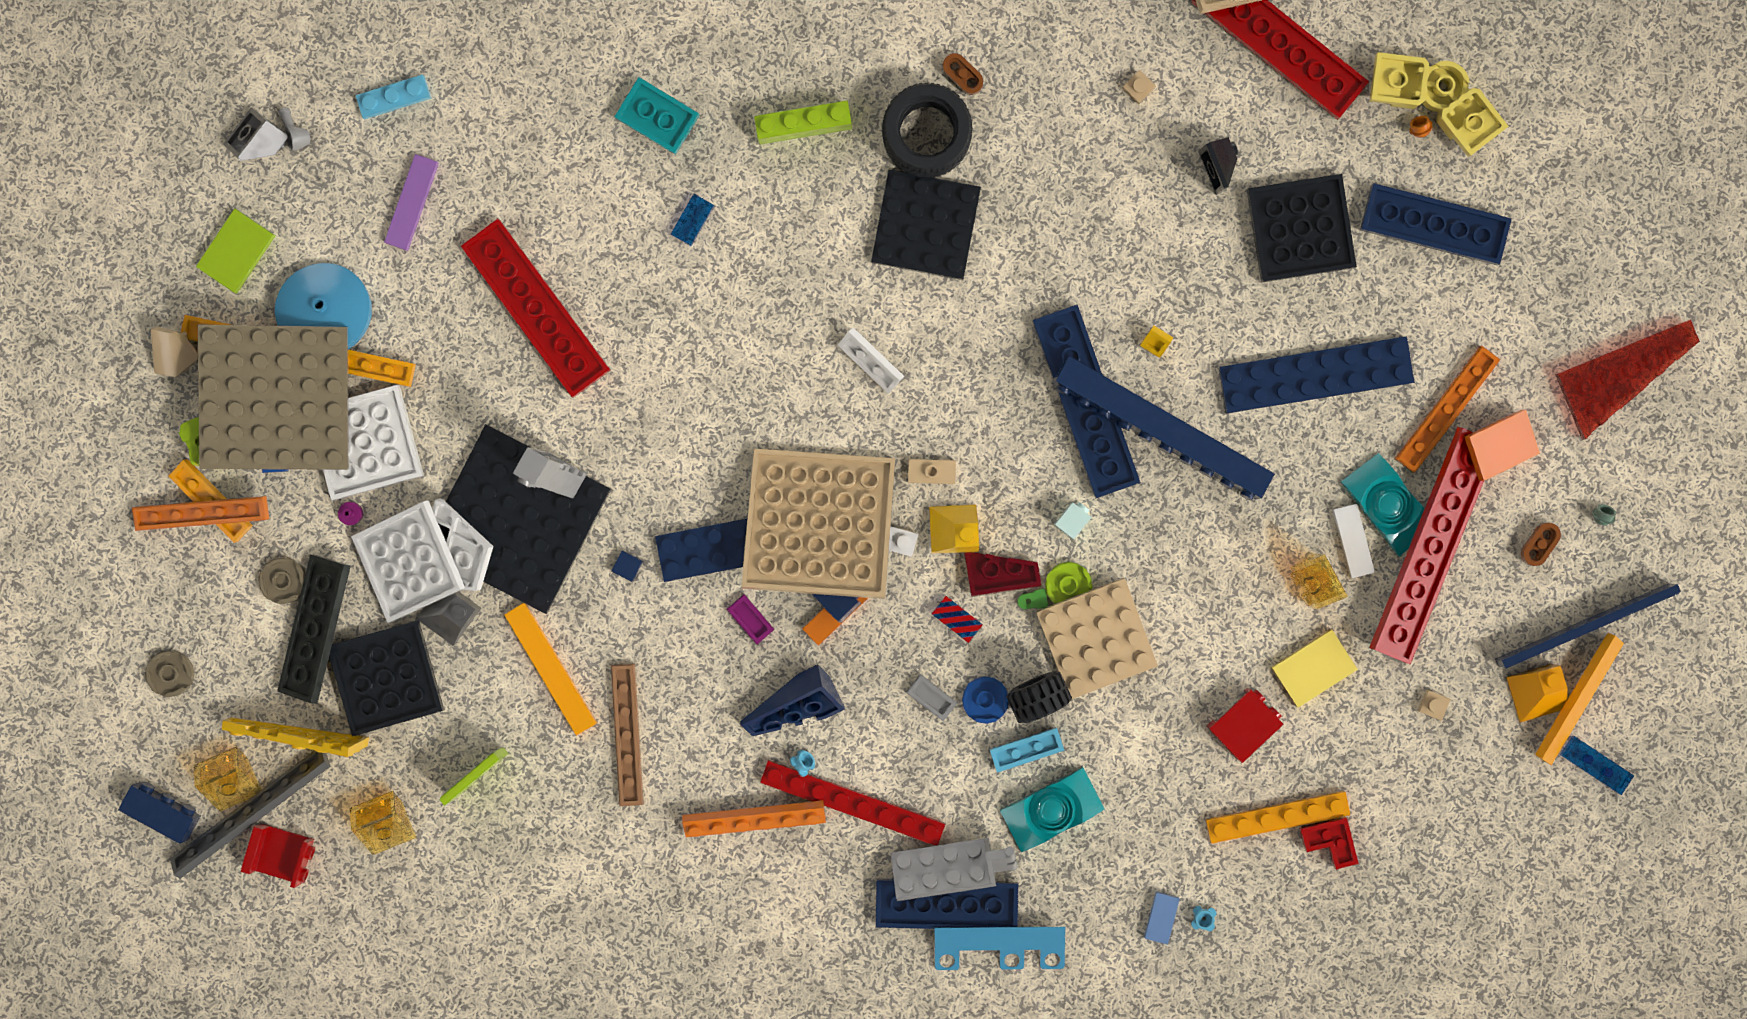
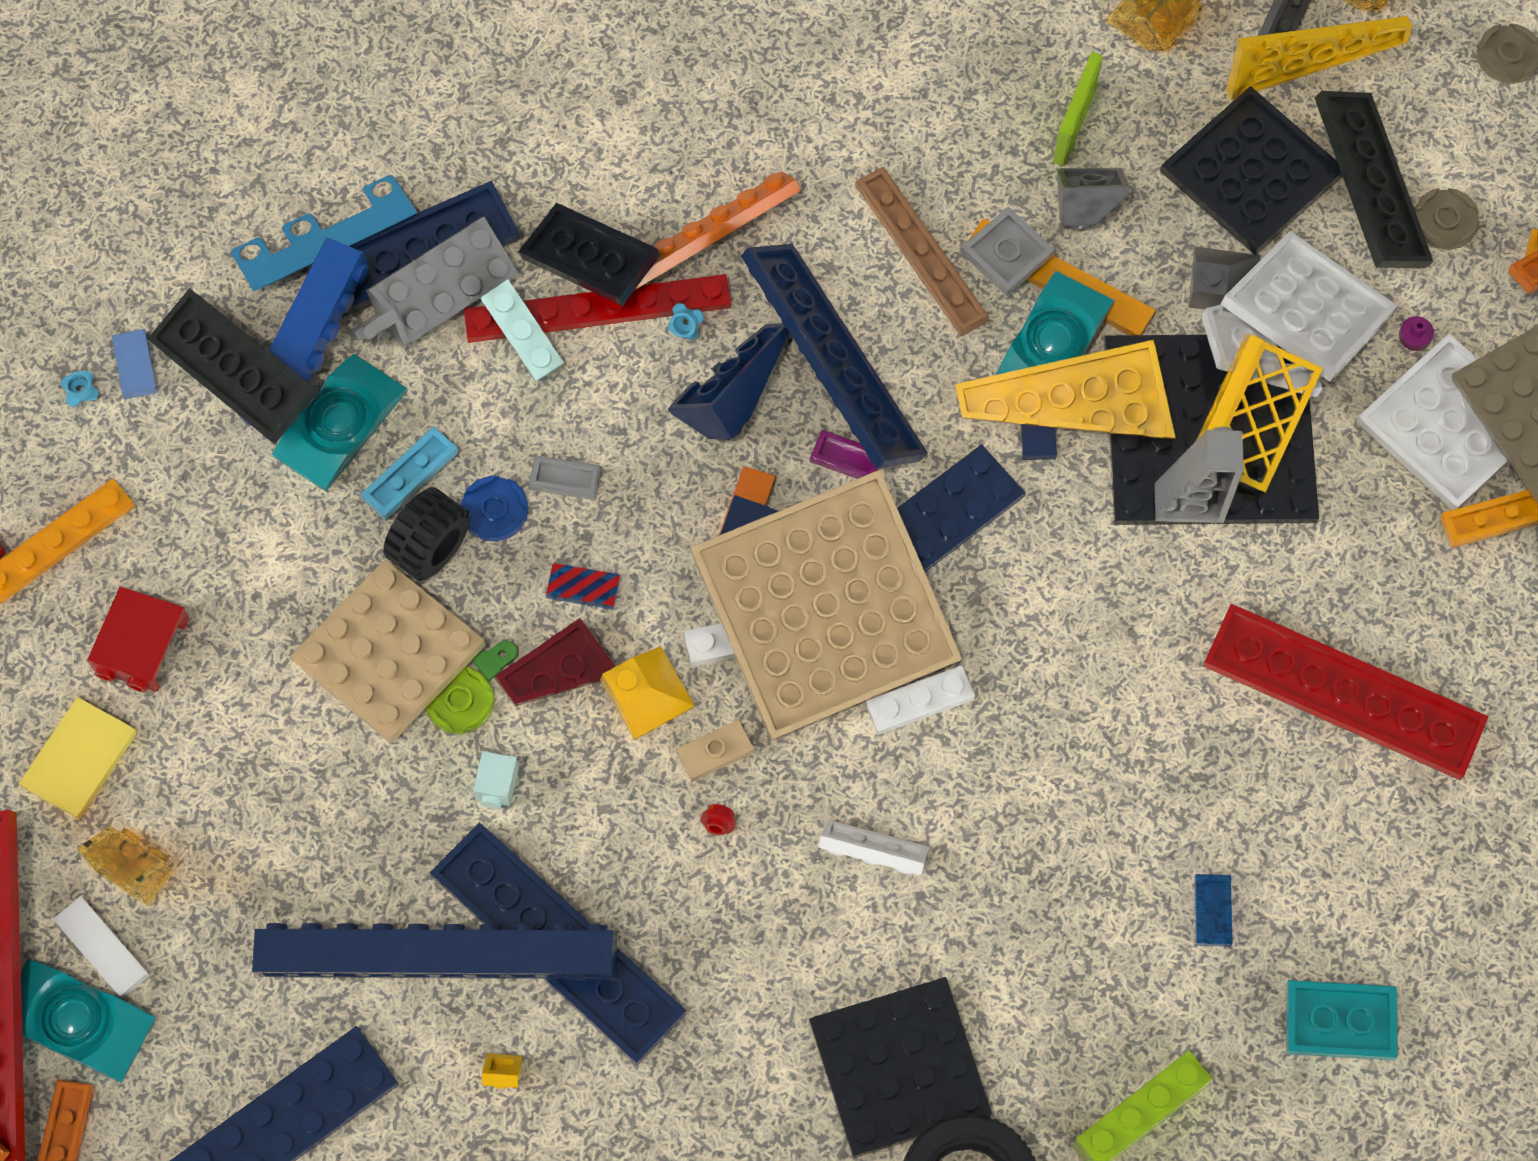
camera: 150 degrees right, 20 degrees down
(494, 522) = (1233, 391): none -> yellow fence
(498, 715) = (1089, 194): none -> flat silver slope
(575, 701) = (1007, 251): none -> light grey plate
(579, 575) = (1092, 392): none -> yellow wing
(579, 627) = (1058, 325): none -> teal slope
(723, 689) = (834, 355): none -> dark blue plate
(792, 438) = (919, 700): none -> white plate
(840, 839) = (589, 253): none -> black plate
(909, 809) = (522, 330): none -> light aqua plate
(953, 426) = (718, 819): none -> red plate
(1049, 875) = (319, 307): none -> blue brick
(1105, 876) = (232, 366): none -> pearl dark grey plate

